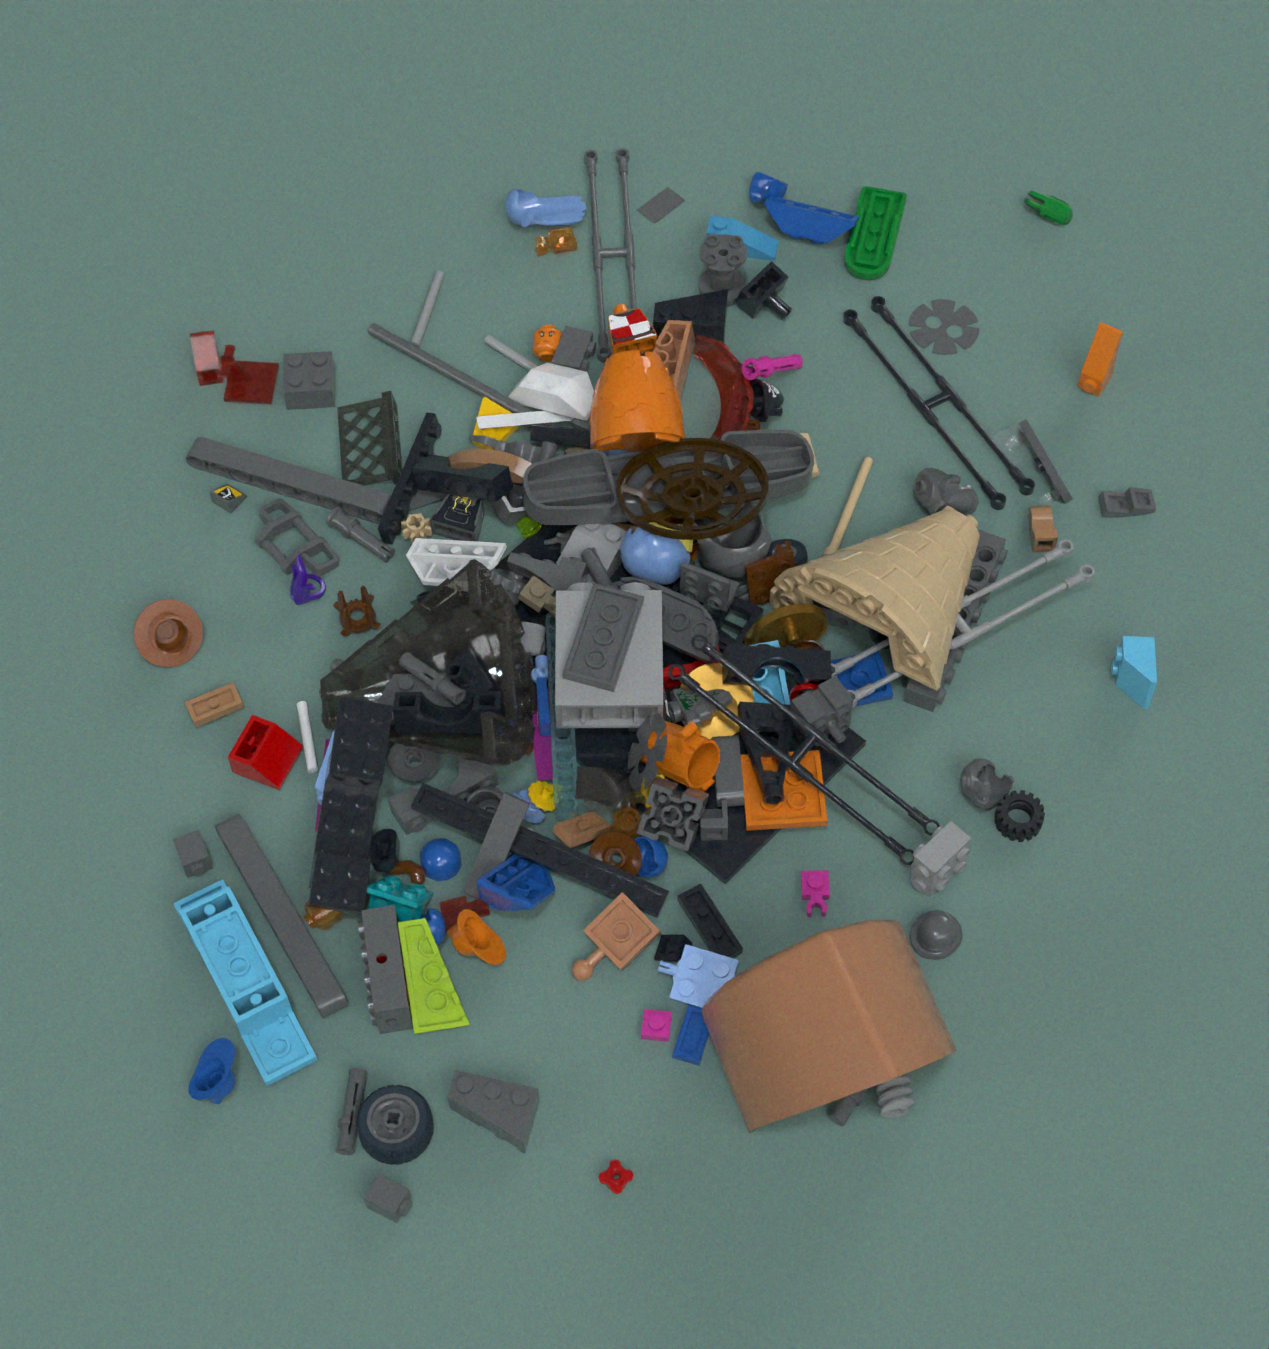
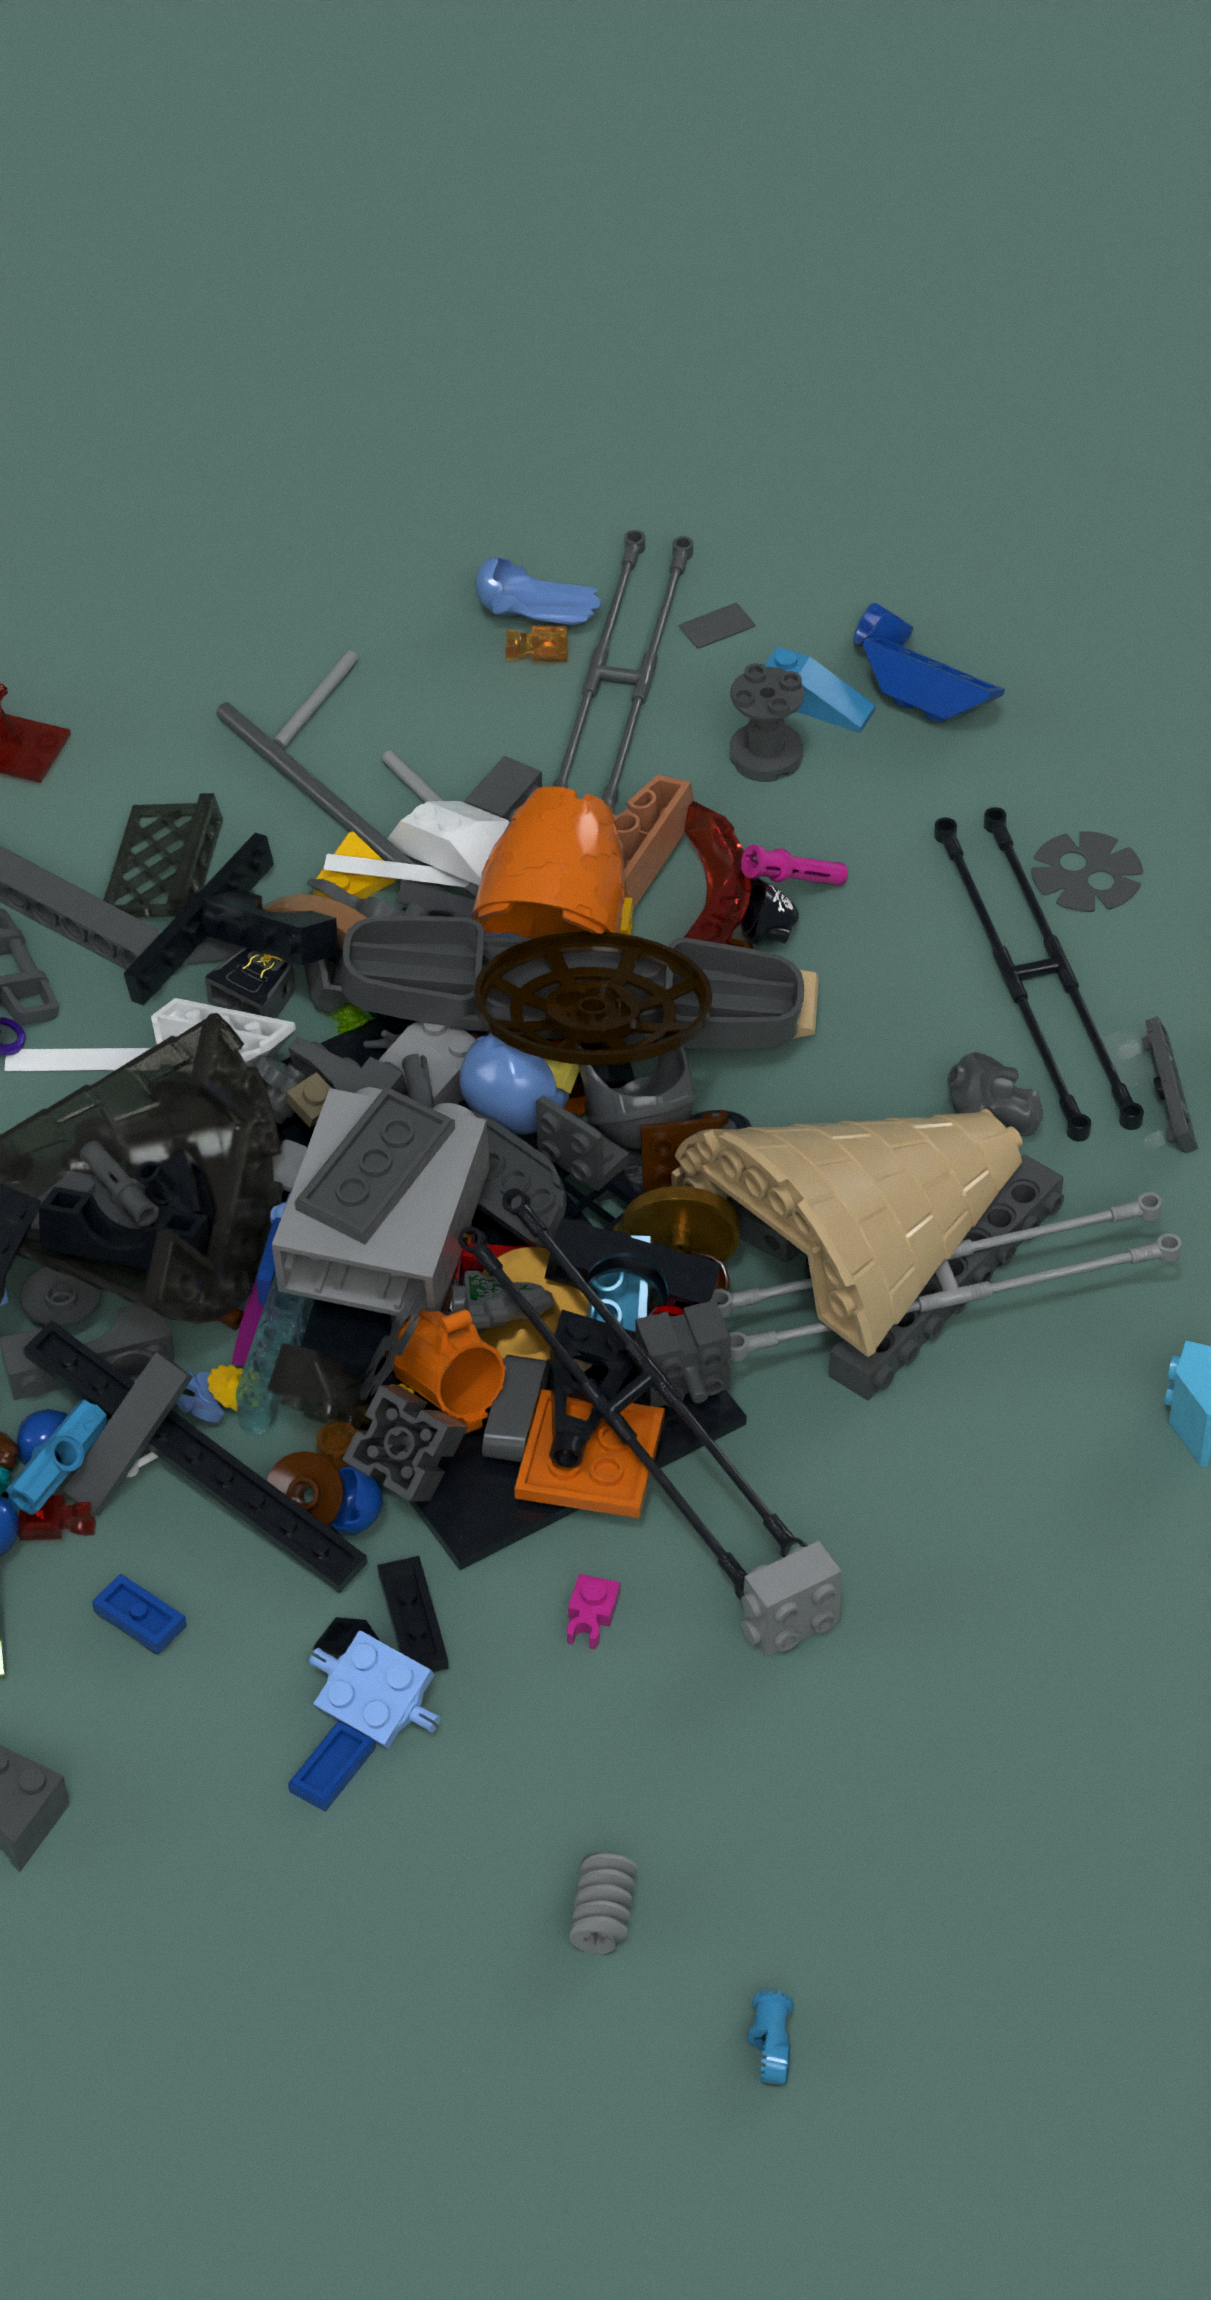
camera: 15 degrees right, 10 degrees down
(309, 380) = (104, 760): dark grey brick -> none
(351, 528) = (90, 970): dark grey pin -> none
(364, 605) = (38, 1077): reddish brown piece -> none
(376, 588) = (71, 1059): none -> white sticker
(416, 527) = (184, 984): tan gear -> none
(456, 872) = (43, 1471): none -> dark azure piece
(475, 937) = (56, 1556): orange piece -> none
(515, 885) = (134, 1490): blue wedge -> none
(540, 963) = (139, 1613): none -> blue plate
(546, 342) = (467, 772): orange head -> none
(581, 828) = (265, 1440): medium nougat plate -> none
(619, 933) = (268, 1598): nougat plate -> none
(619, 1184) = (144, 1943): red plate -> none
(630, 331) = (599, 774): torso -> none
(656, 1025) = (280, 1739): dark pink plate -> none
(705, 311) = (719, 778): black wedge -> none
(715, 823) = (468, 1477): dark grey panel -> none
(763, 292) = (822, 766): black brick -> none
(824, 1021) = (519, 1741): nougat piece -> none
(845, 1107) = (534, 1905): dark grey pin -> none
(849, 507) = (857, 1076): tan bar -> none
(863, 672) = (775, 1314): blue plate -> none
(876, 232) = (1025, 720): green piece -> none
(936, 935) = (753, 1710): dark grey hat -> none
(982, 784) = (902, 1512): dark grey hair -> none
(1021, 1146) = (770, 2034): none -> dark azure connector
(1022, 802) = (944, 1591): black tyre -> none
(1042, 528) = (1130, 1171): medium nougat leg -> none

